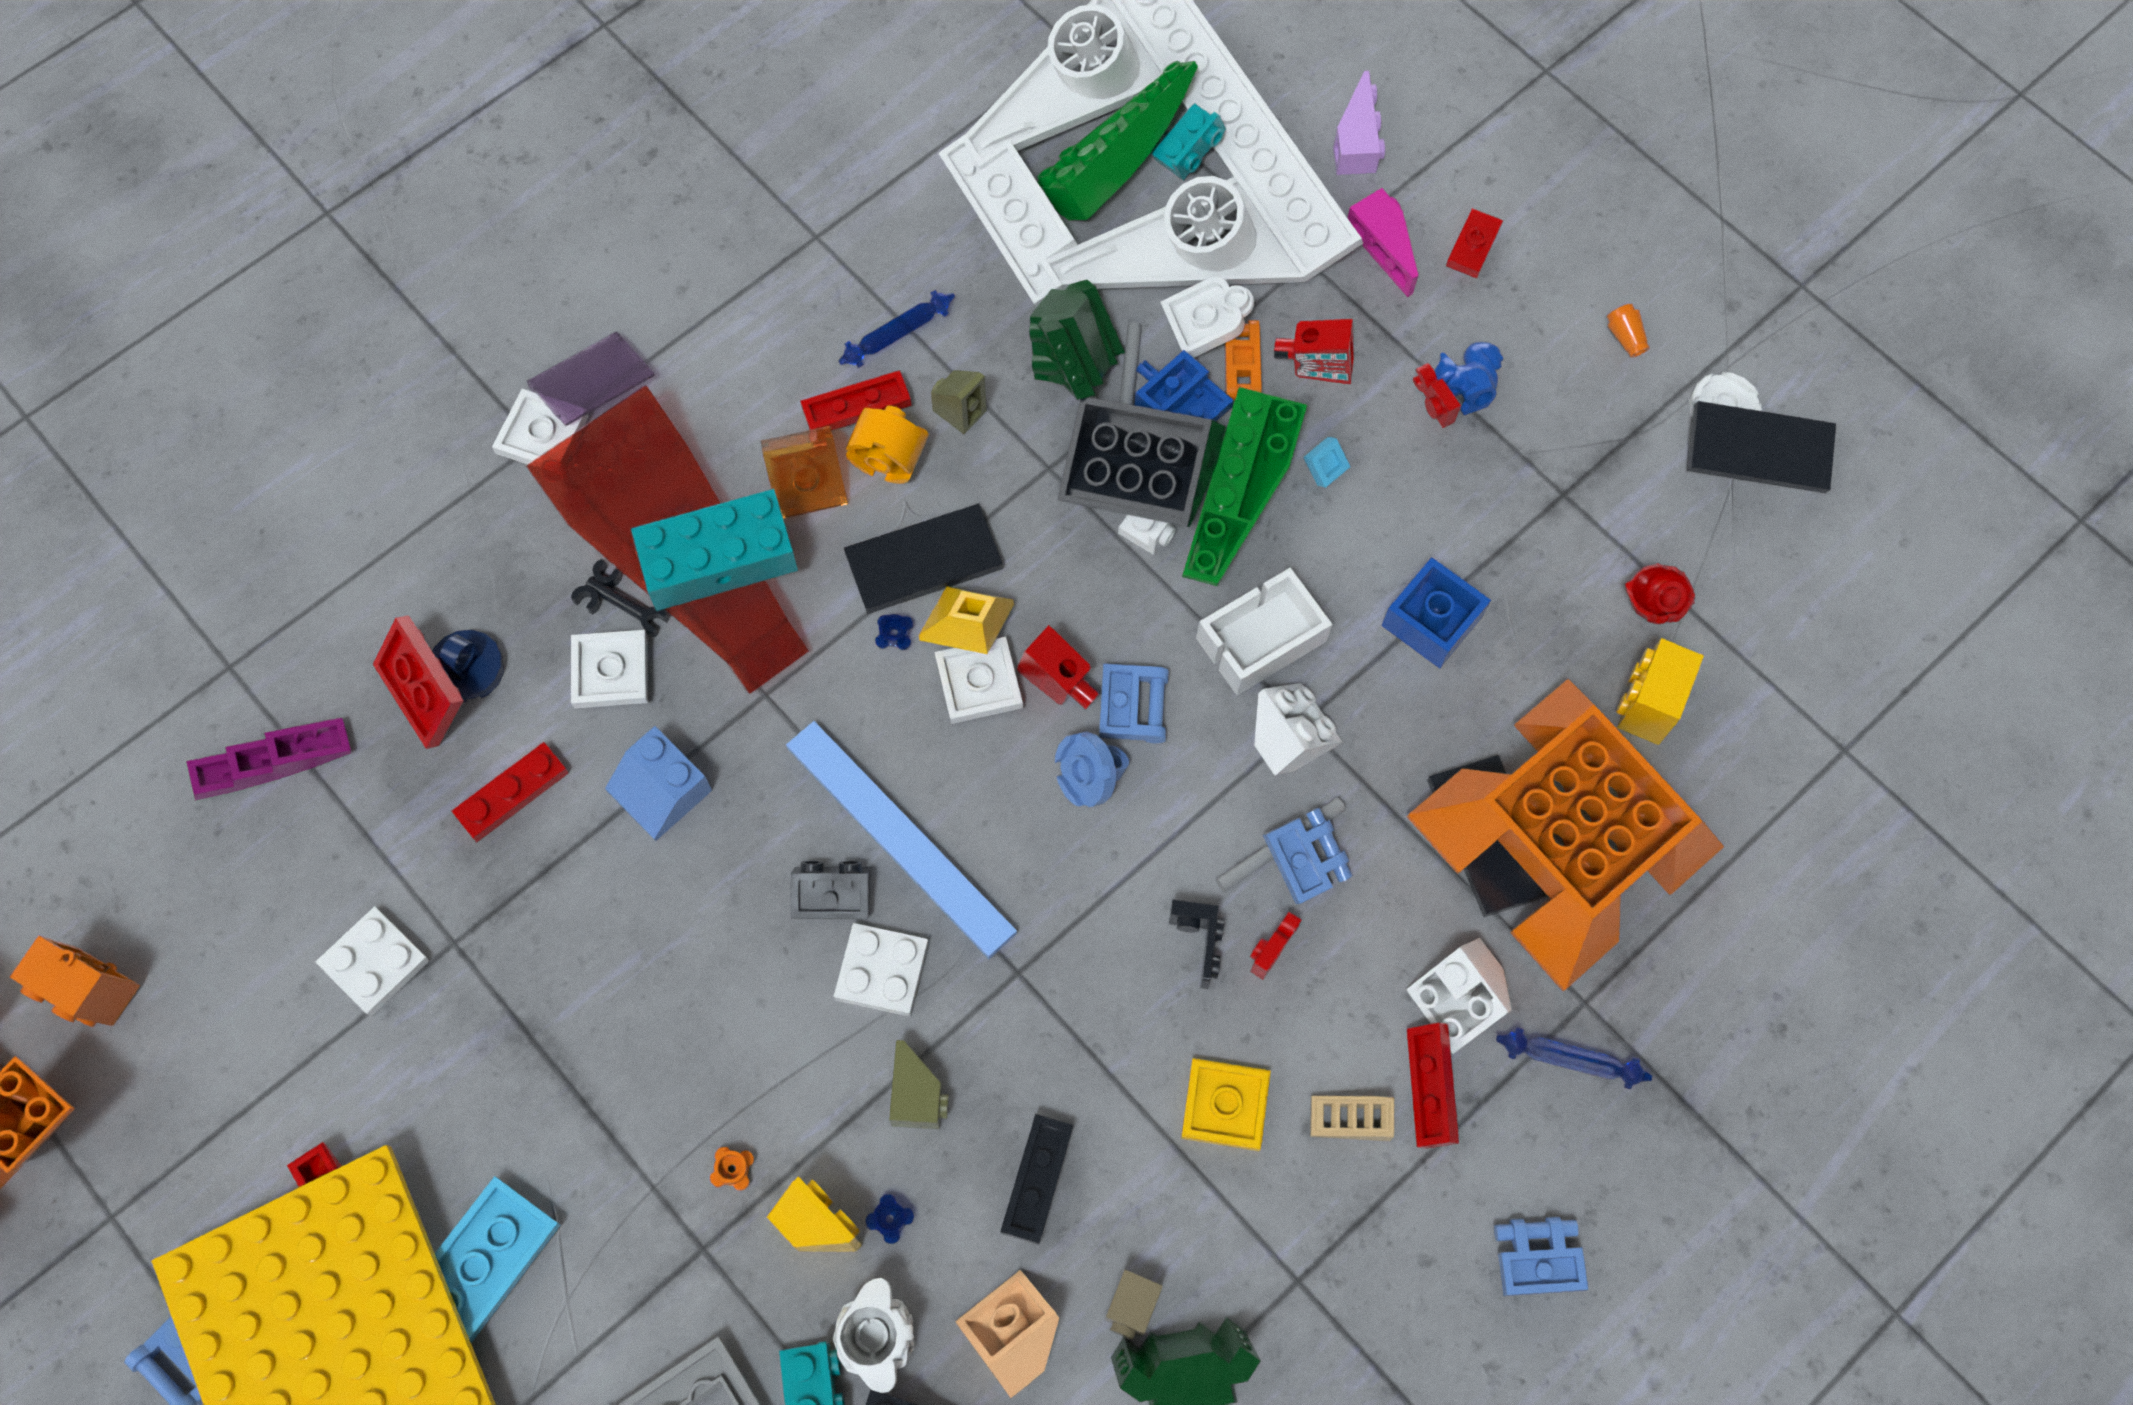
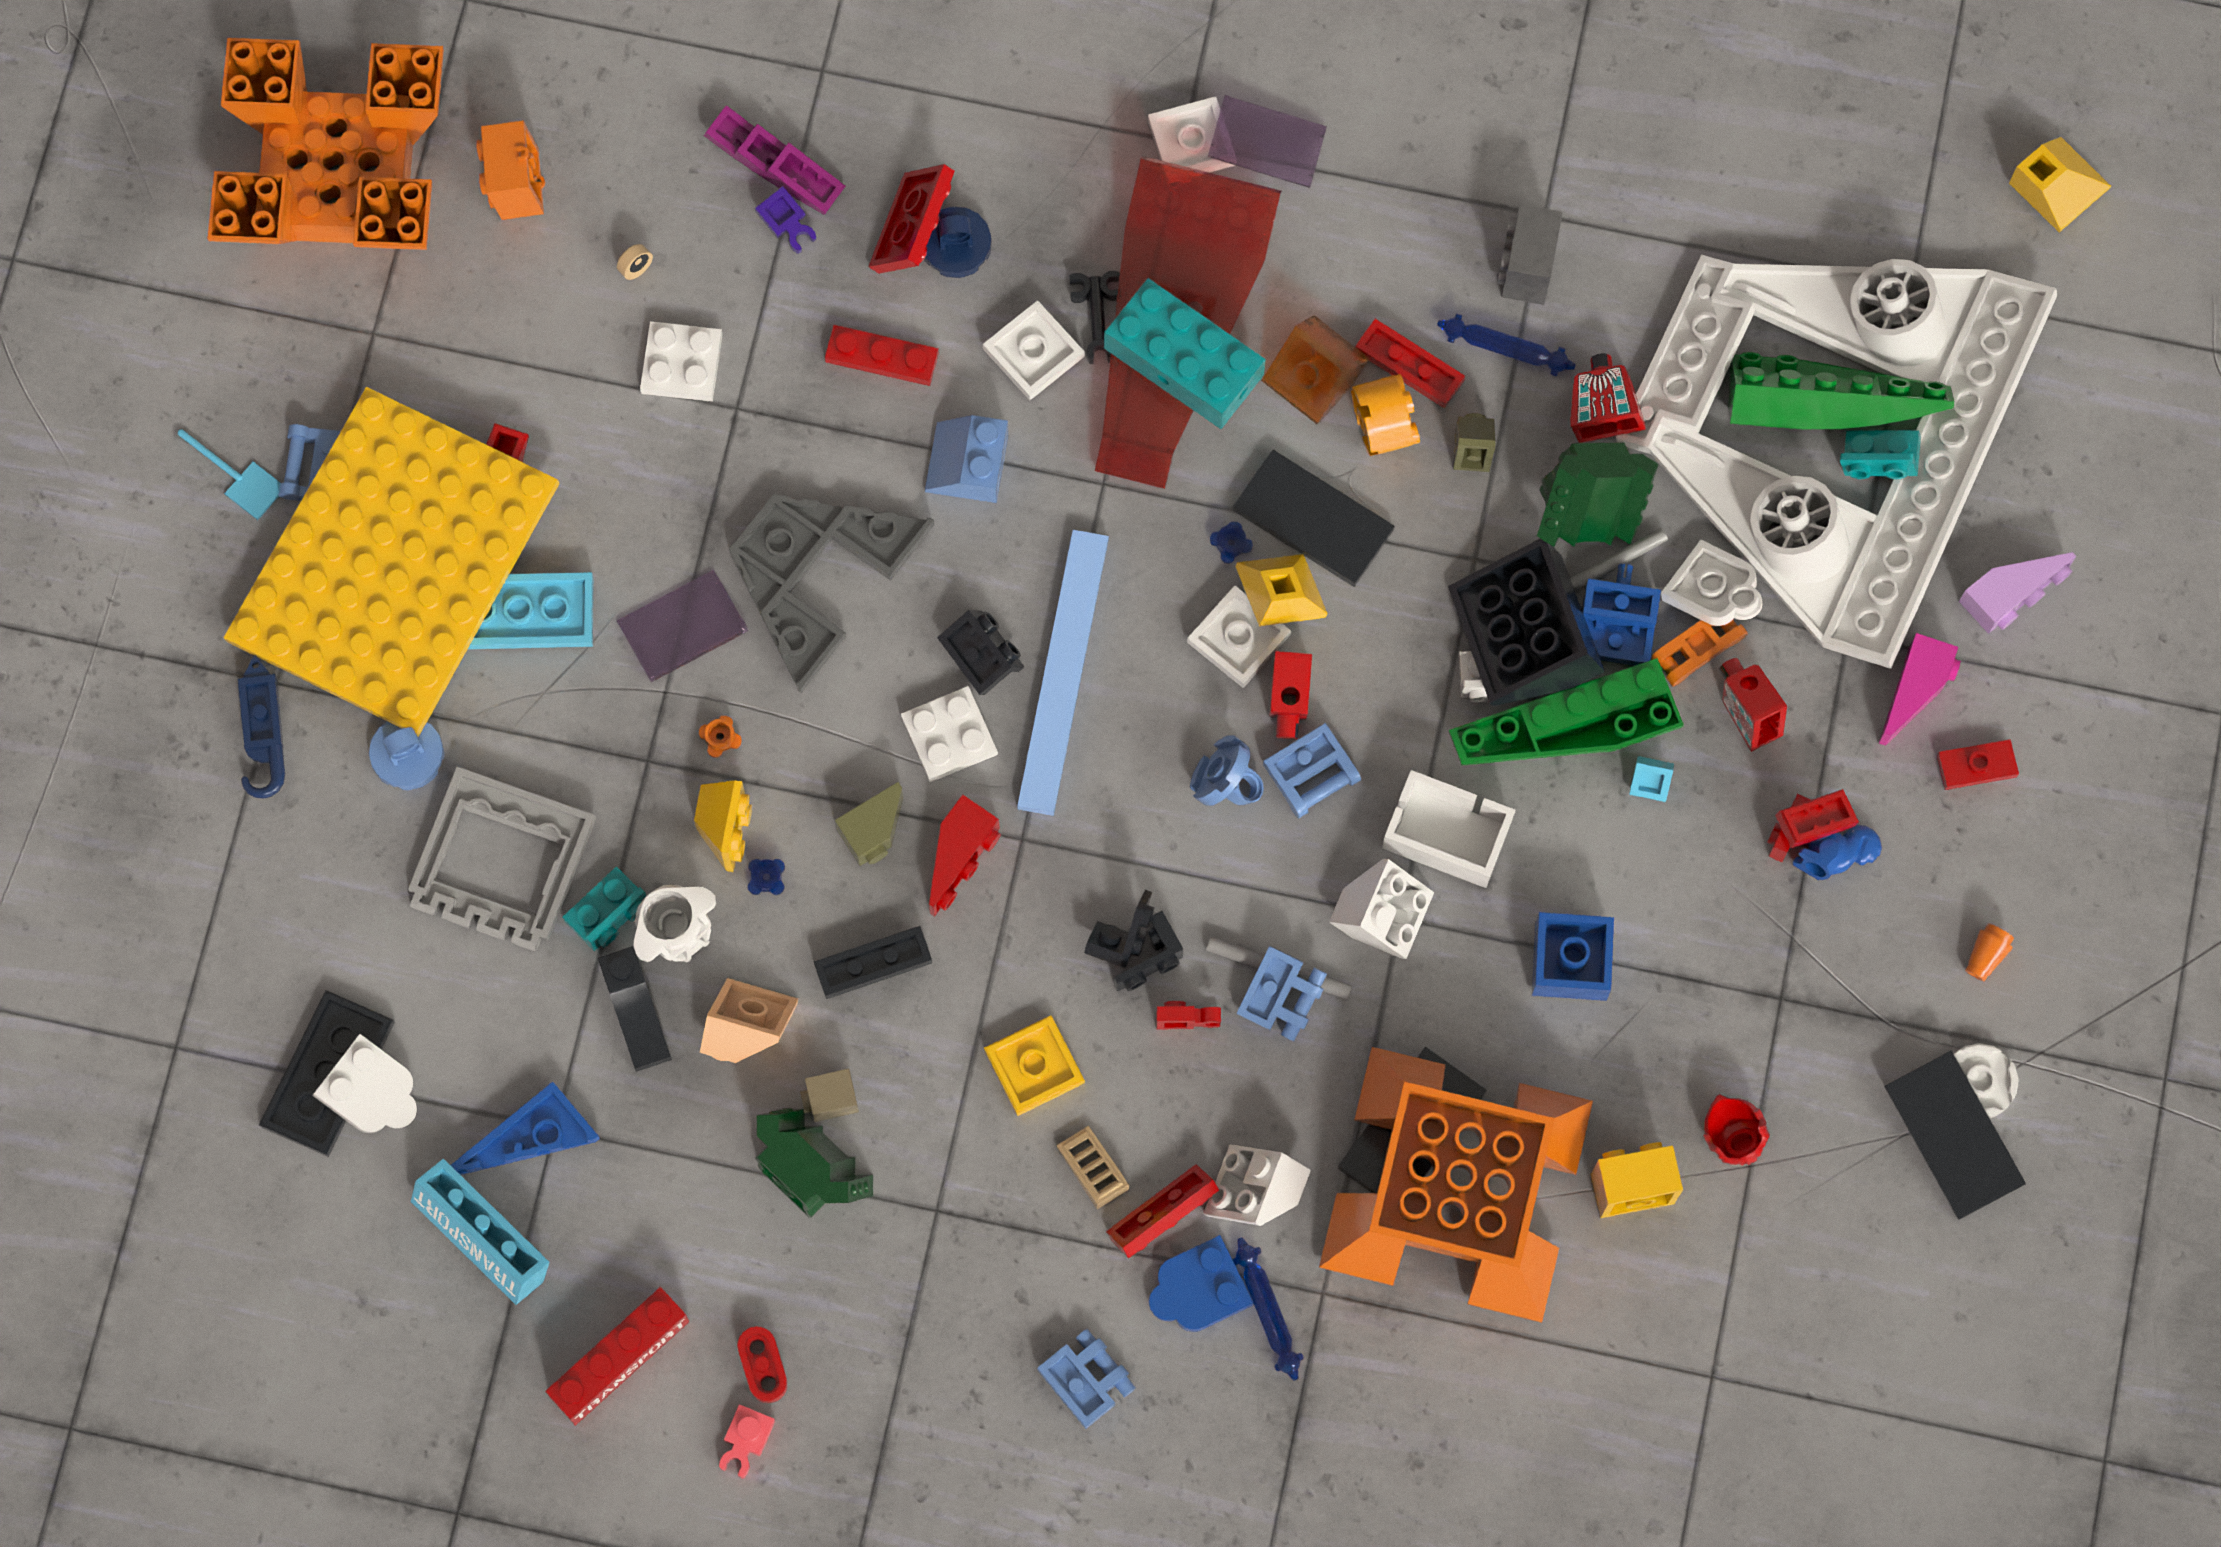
camera: 55 degrees right, 5 degrees up
(251, 937) = (634, 261): none -> tan tile
(323, 784) = (783, 215): none -> dark purple plate
(606, 1131) = (682, 626): none -> clear purple piece
(607, 991) = (783, 546): none -> dark grey wing
(844, 256) = (1529, 254): none -> flat silver brick
(986, 1029) = (961, 841): none -> red slope
(1002, 287) = (1604, 402): none -> red torso
(1173, 958) = (1117, 945): none -> black bracket
(1450, 365) = (1817, 818): none -> red plate
(1517, 1102) = (1199, 1287): none -> blue plate

